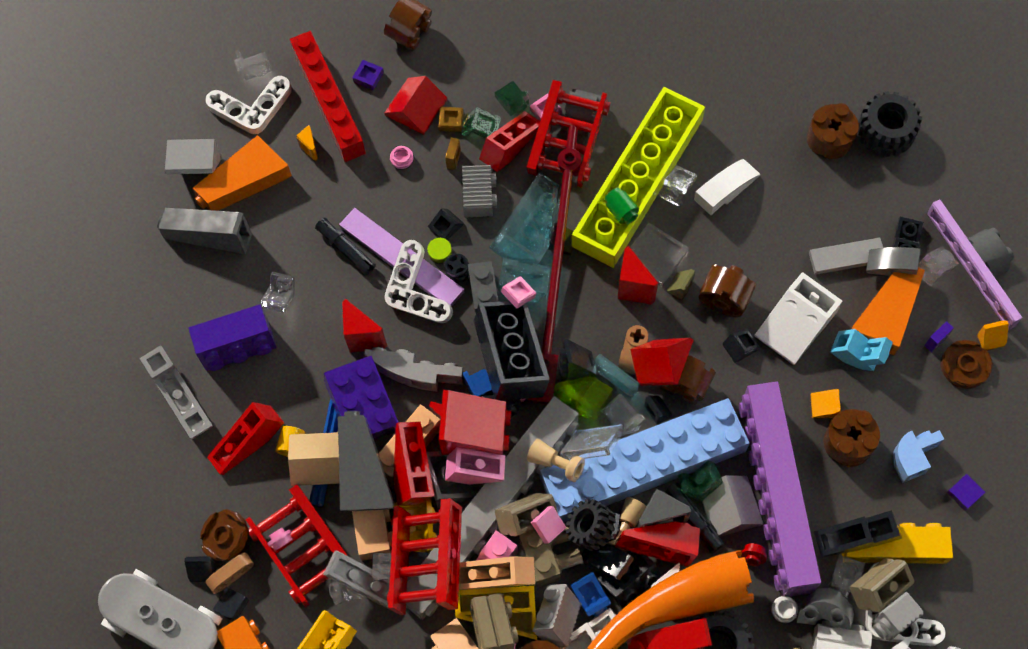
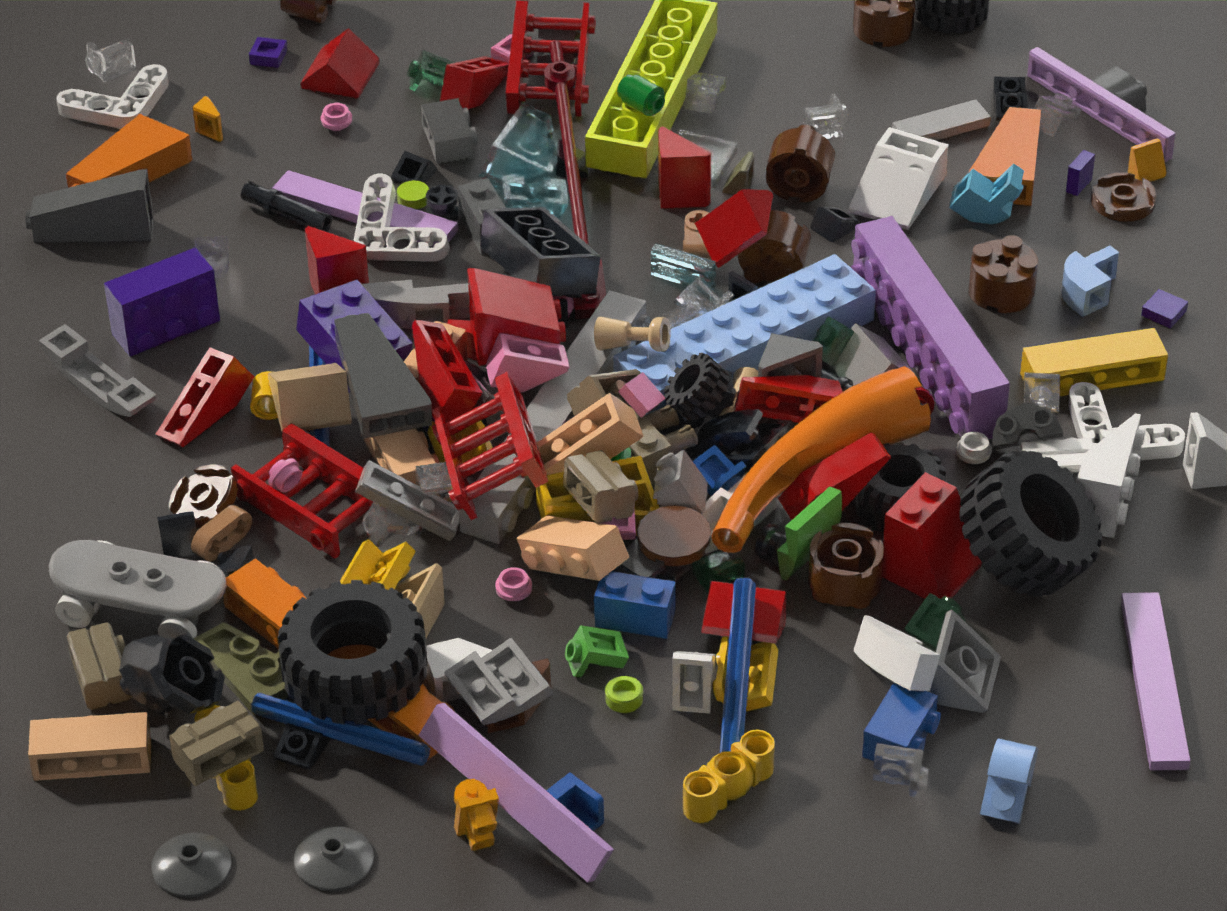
camera: 15 degrees left, 25 degrees down
(191, 156) = (56, 142): light grey slope -> none
(327, 96) = (222, 73): red brick -> none
(450, 119) = (390, 76): pearl gold tile -> none
(453, 153) = (404, 101): pearl gold tile -> none
(512, 98) = (466, 45): clear green bracket -> none
(518, 292) = (533, 197): bright pink tile -> none
(575, 362) = (631, 262): black slope -> none
(584, 394) = (653, 284): clear neon green slope -> none
(725, 186) = (764, 82): white slope -> none
(760, 240) = (827, 119): none -> clear bracket
(825, 404) = (957, 256): light orange slope -> none
(858, 534) = (1044, 343): black slope -> none
(882, 585) = (1087, 383): dark tan brick -> none
(893, 259) = (987, 111): dark grey slope -> none
(897, 617) = (1115, 401): light grey brick -> none

